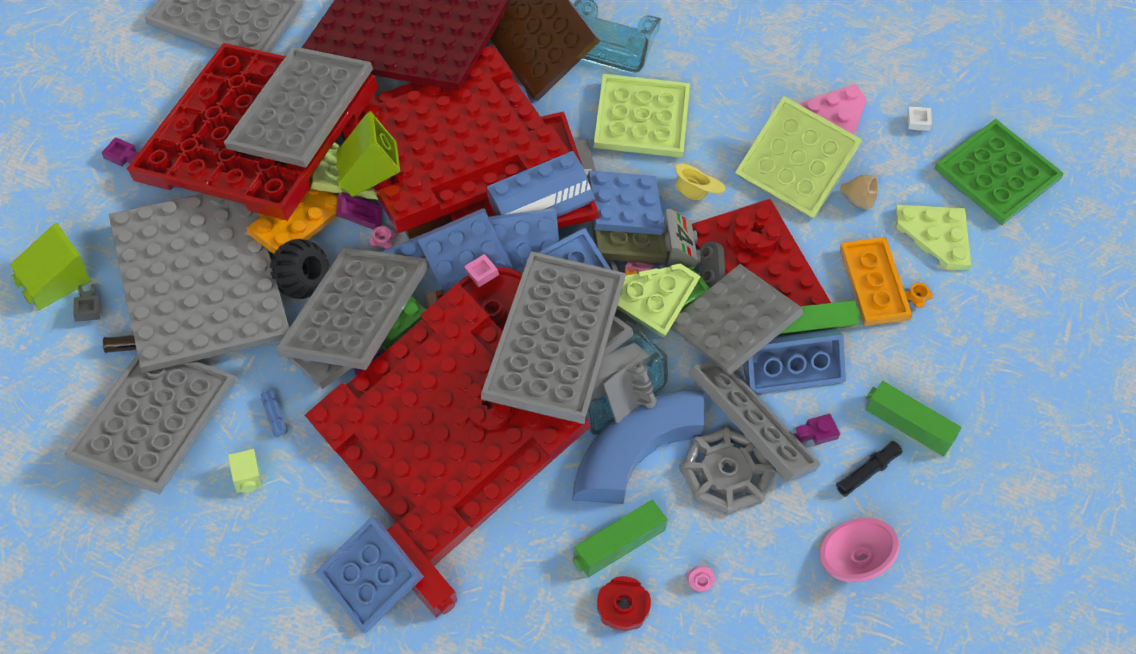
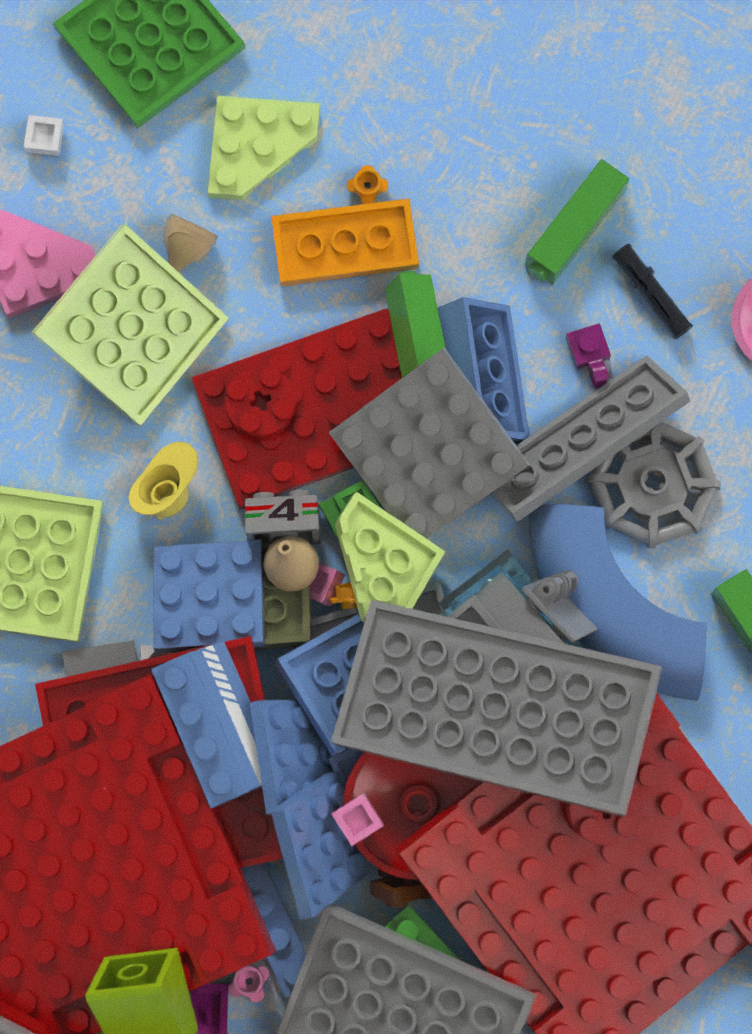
camera: 85 degrees left, 20 degrees up
(650, 243) = (291, 563): none -> tan helmet
(712, 262) = (321, 473): dark grey plate -> none

